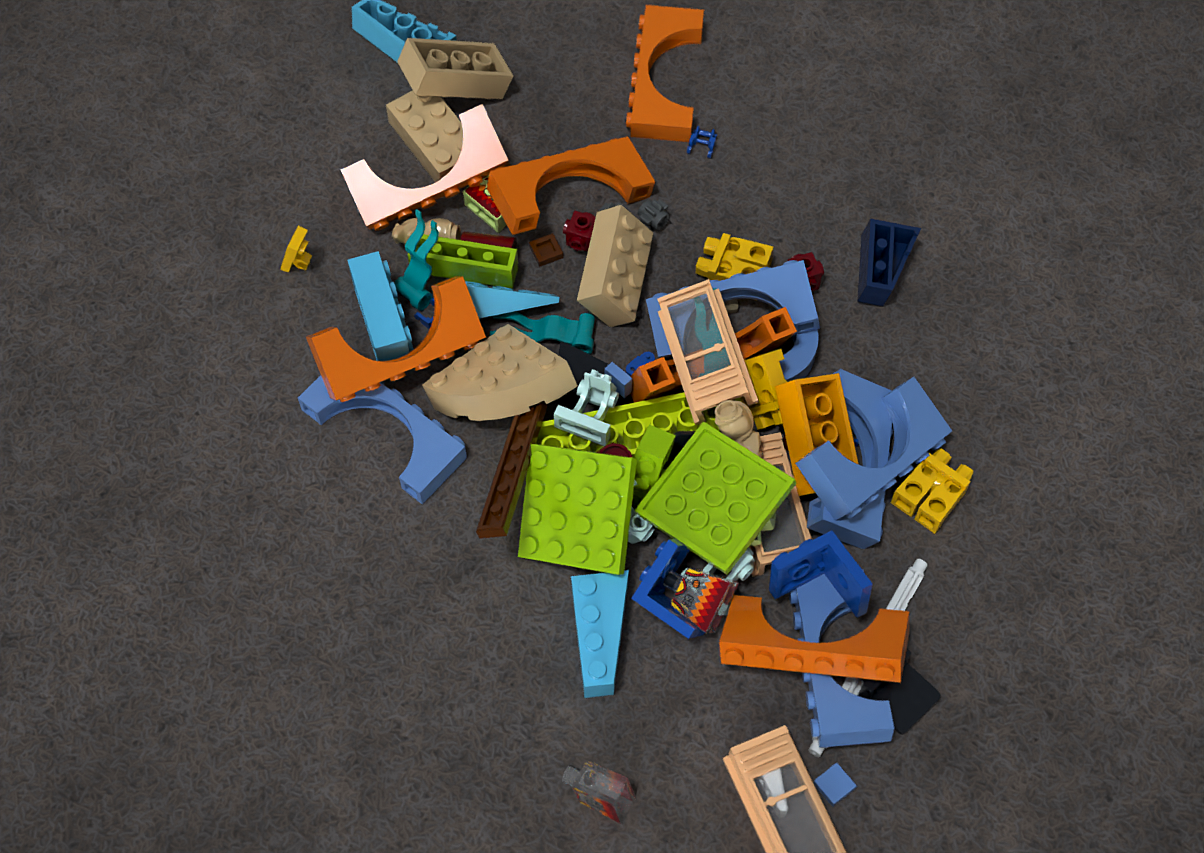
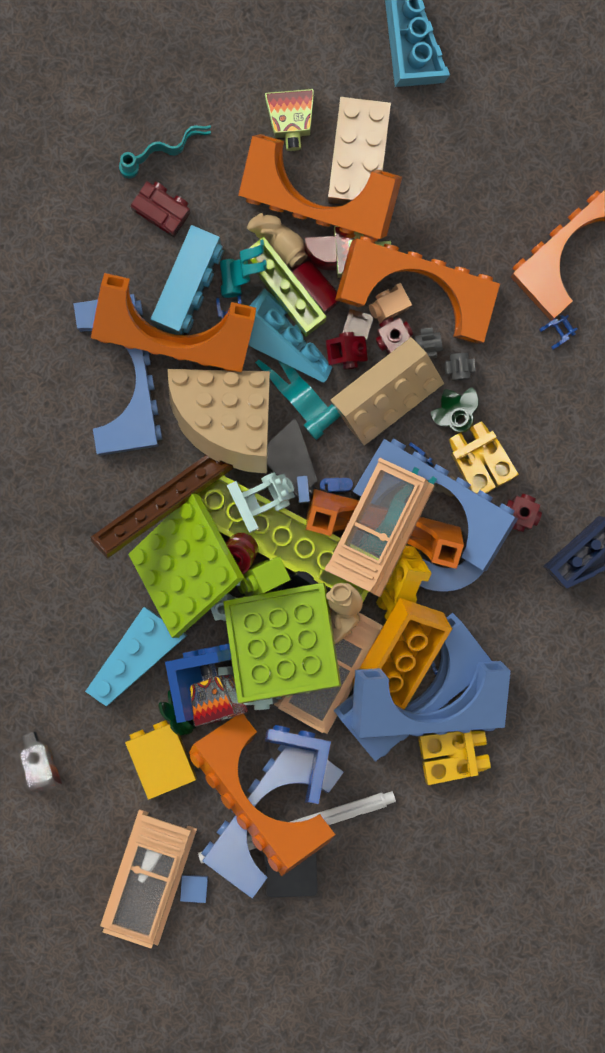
camera: 40 degrees right, 25 degrees up
(256, 264) = (131, 170): none -> teal flag
(295, 251) = (170, 174): yellow plate -> none
(310, 284) = (161, 208): none -> dark red brick
(355, 144) = (290, 115): none -> torso
(454, 68) = (417, 111): tan brick -> none
(471, 211) = (322, 251): none -> brick
(555, 267) = (347, 350): none -> dark red brick
(557, 212) = (390, 303): none -> light nougat brick
(678, 248) = (456, 407): none -> plate
(690, 647) = (167, 711): none -> dark green plate
(701, 695) = (160, 759): none -> yellow brick

